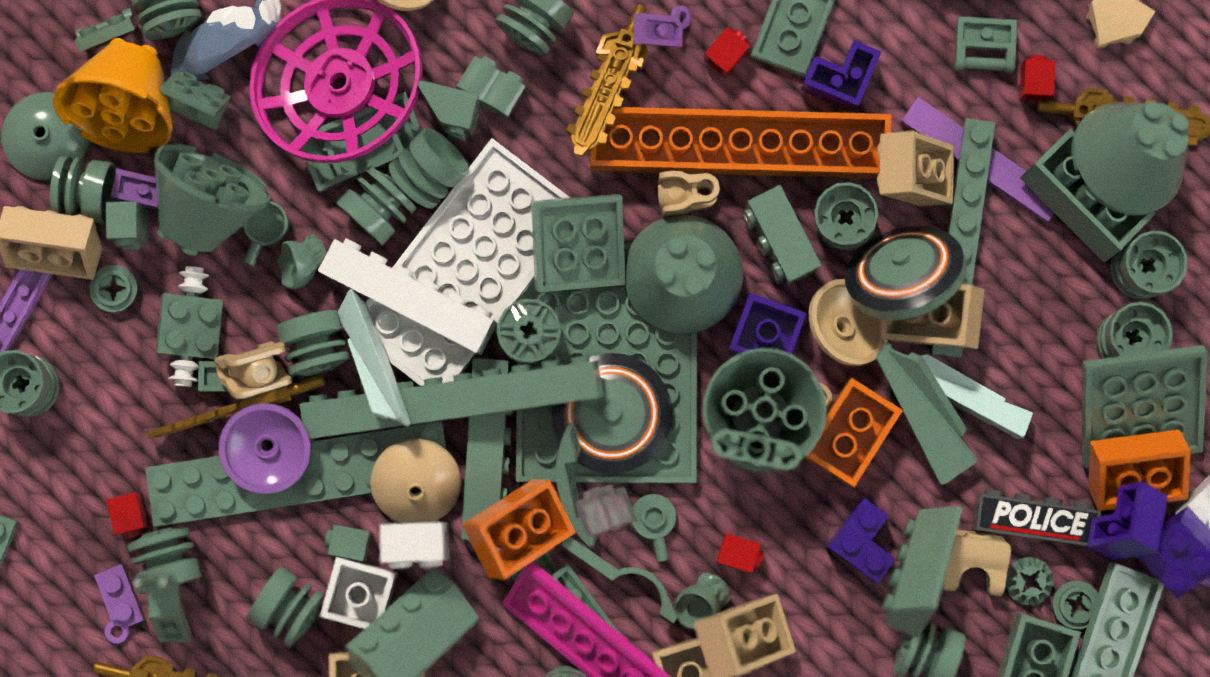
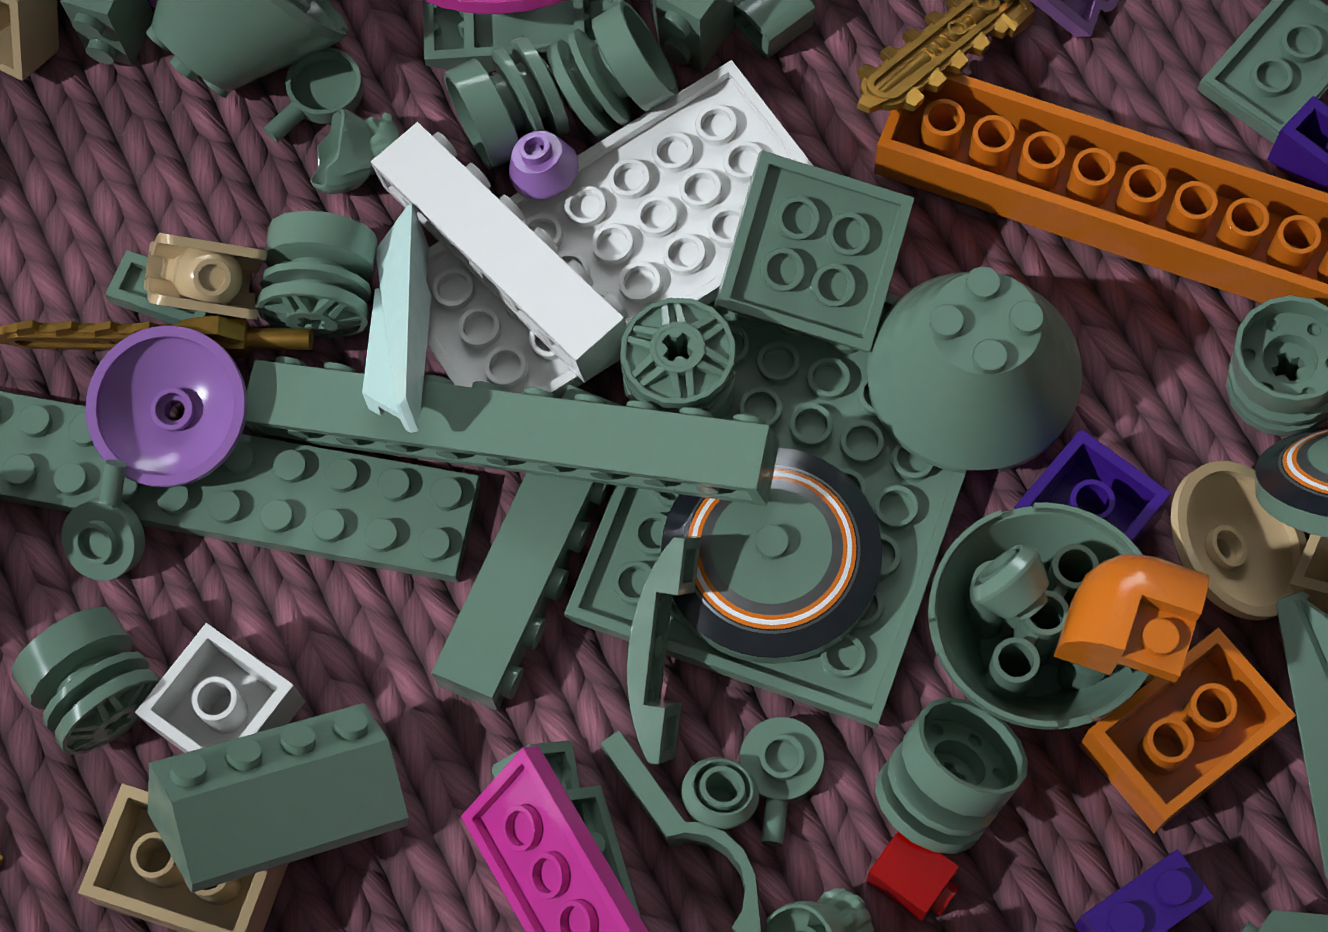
camera: 25 degrees right, 15 degrees down
(104, 278) = (41, 89): sand green gear -> none
(188, 326) = (134, 192): sand green plate -> none
(256, 524) = (104, 534): none -> sand green piece
(348, 542) = (243, 615): sand green brick -> none
(414, 542) = (347, 642): white brick -> none
(415, 465) = (430, 551): tan dish -> none
(416, 243) = (542, 165): none -> medium lavender cone
(519, 528) = (536, 682): orange brick -> none
(605, 509) = (699, 708): clear brick -> none
(630, 540) = (720, 793): none -> sand green cone
(679, 192) = (1013, 237): tan piece -> none
(727, 51) = (1162, 61): red brick -> none
(742, 502) = (950, 775): none -> sand green wheel
(744, 405) = (1013, 584): none -> sand green cone
(776, 461) = (1002, 647): sand green beam -> none
(780, 237) = (1165, 362): sand green brick -> none
(809, 401) = (1134, 615): none -> orange brick

